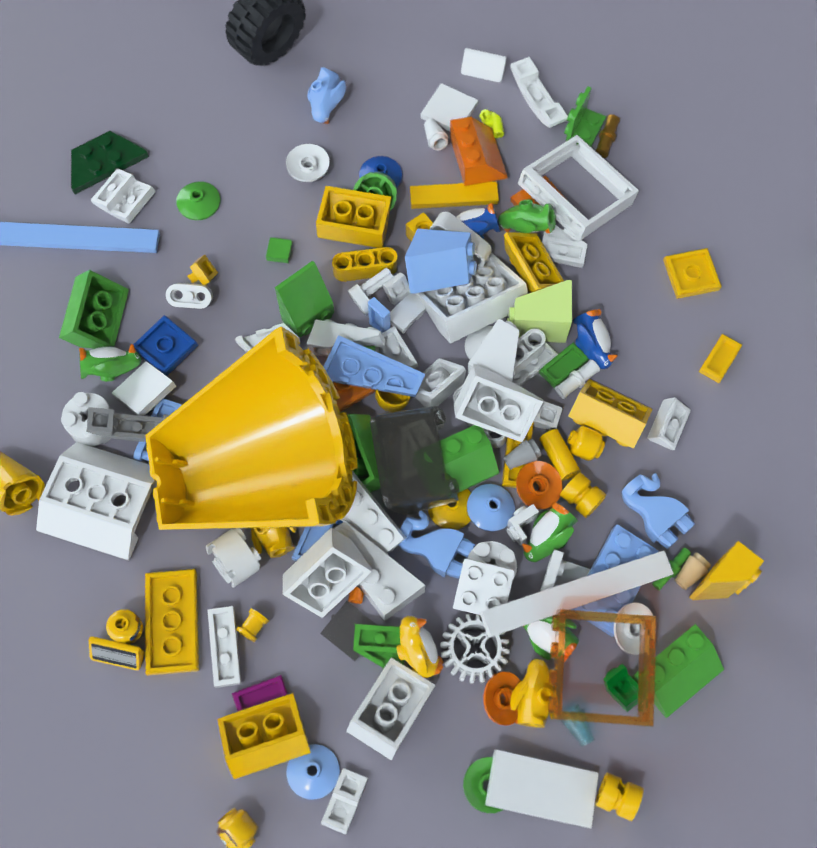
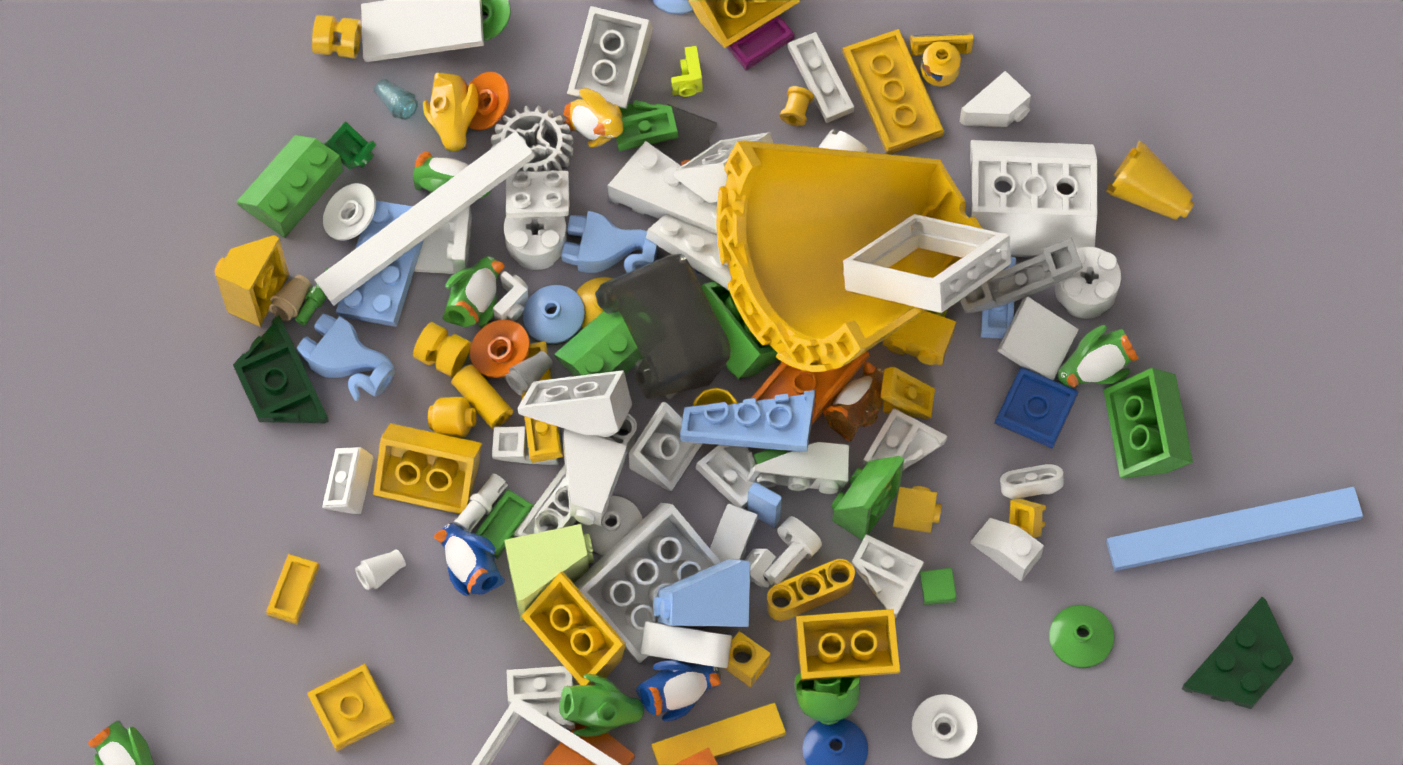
camera: 165 degrees right, 0 degrees up
(94, 582) = (997, 104): none -> white slope
(123, 196) = (1188, 610): white slope -> none
(173, 456) = (982, 254): none -> white window
(223, 258) = (1008, 547): none -> white slope
(267, 296) = (916, 509): none -> yellow brick
(306, 253) = (886, 572): none -> white wing
(326, 681) = (691, 77): none -> neon yellow bracket
(646, 677) = (371, 91): clear orange window -> none
(658, 352) = (379, 569): none -> white cone
(712, 508) = (277, 380): none -> dark green wing

